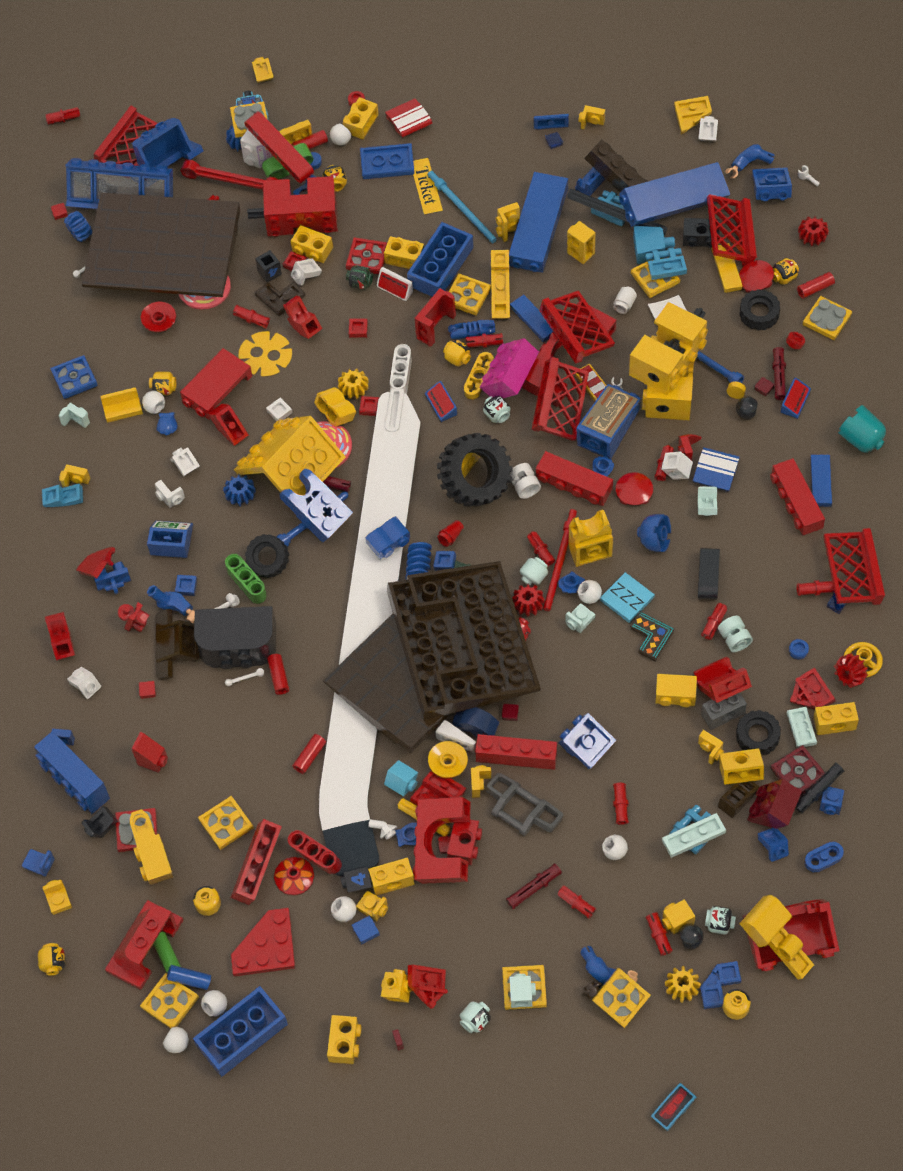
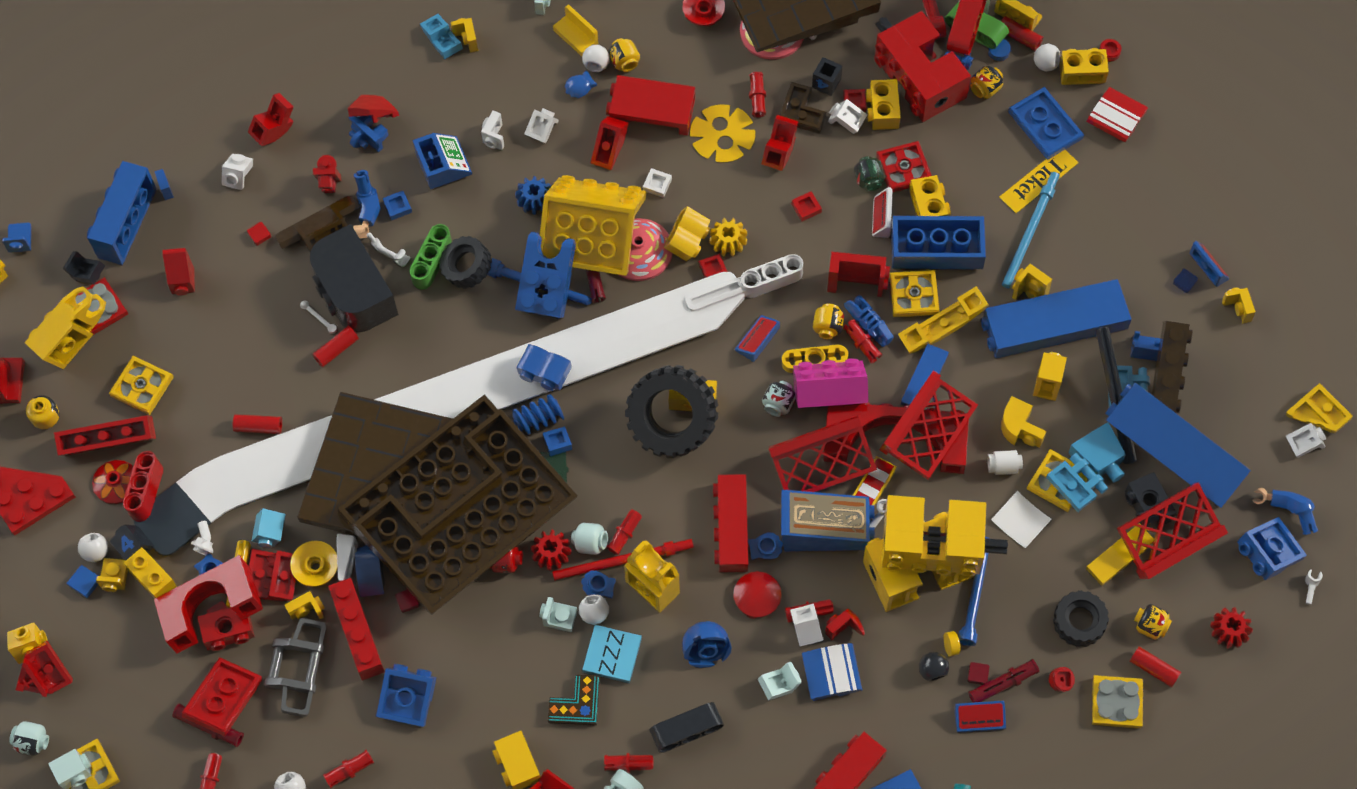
camera: 60 degrees right, 5 degrees up
(450, 533) = (594, 429): red cone -> none
(518, 865) = (221, 696): none -> red tile
(524, 480) = (697, 474): white wheel -> none
(602, 281) = (1015, 424): none -> yellow brick
(756, 275) = (1126, 592): red dish -> none

